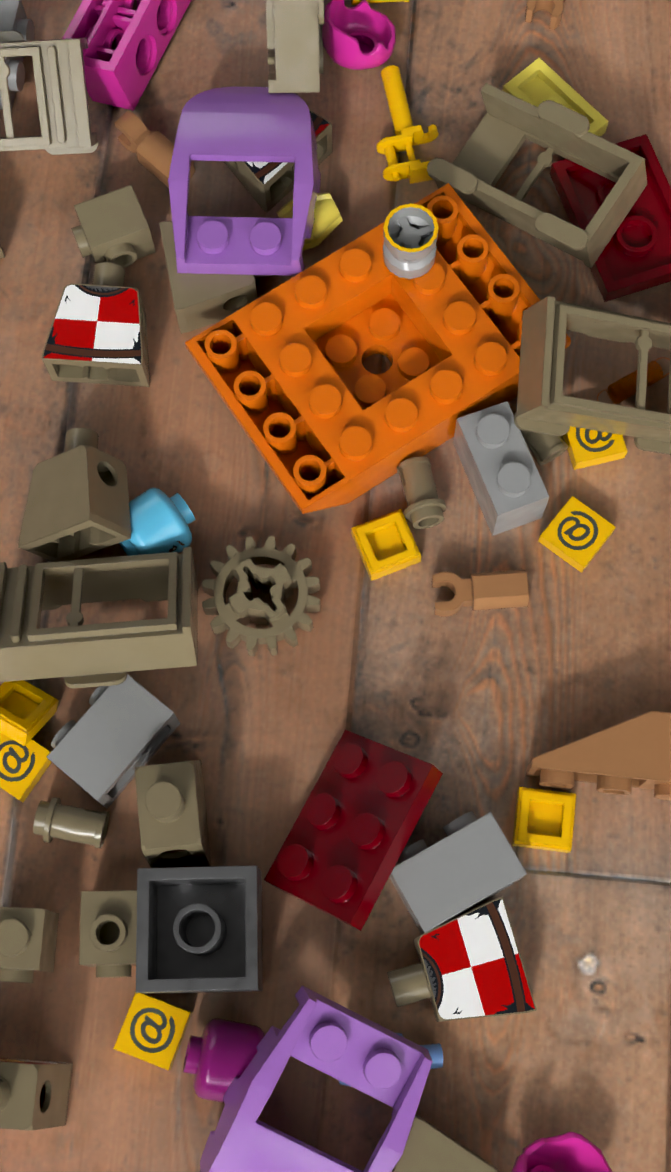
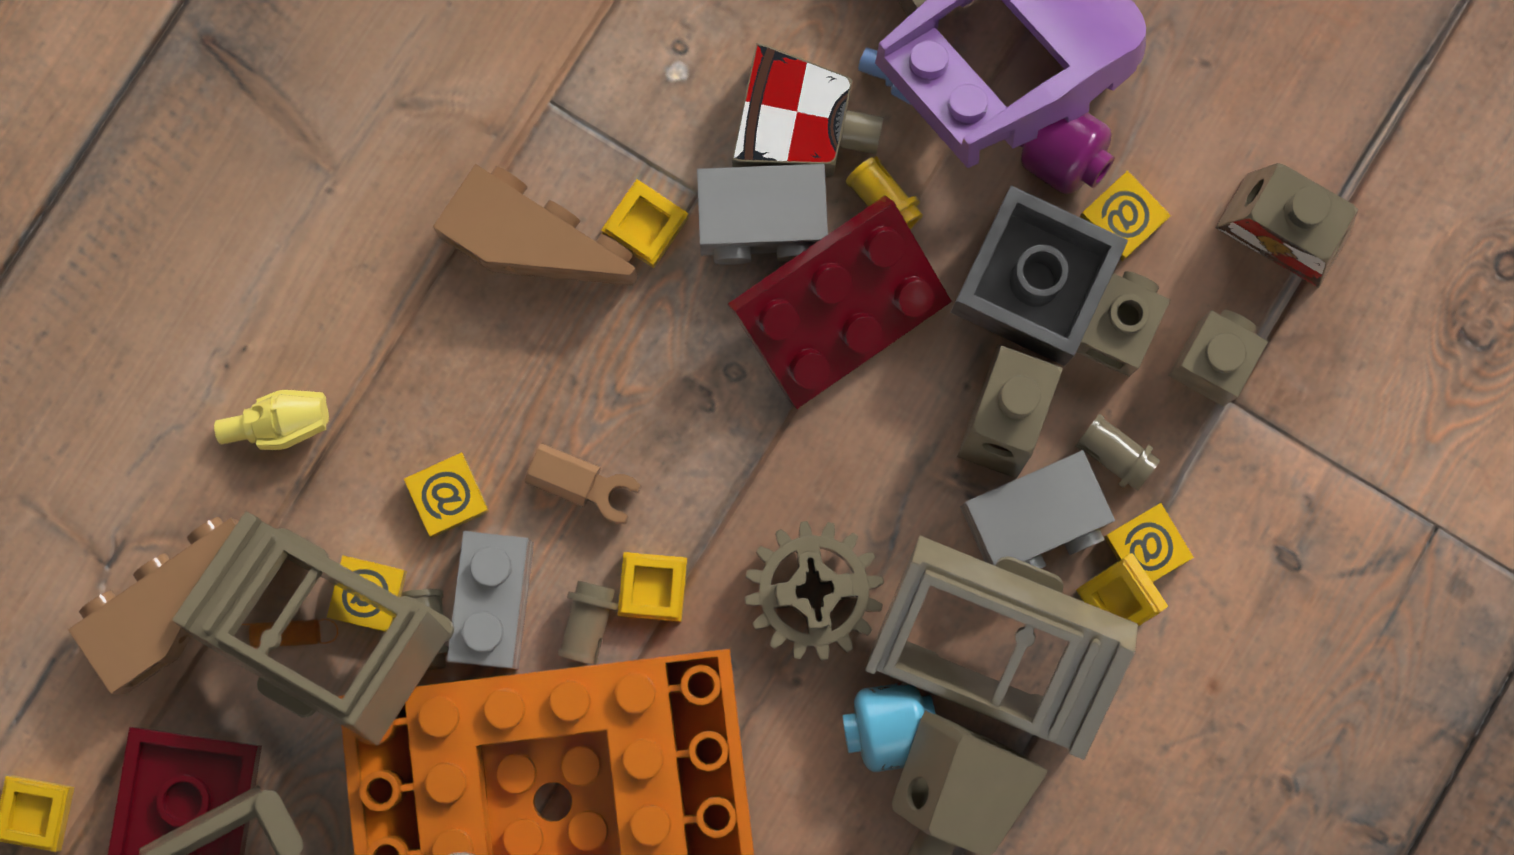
camera: 160 degrees left, 10 degrees up
(368, 944) = (873, 182): none -> yellow pin

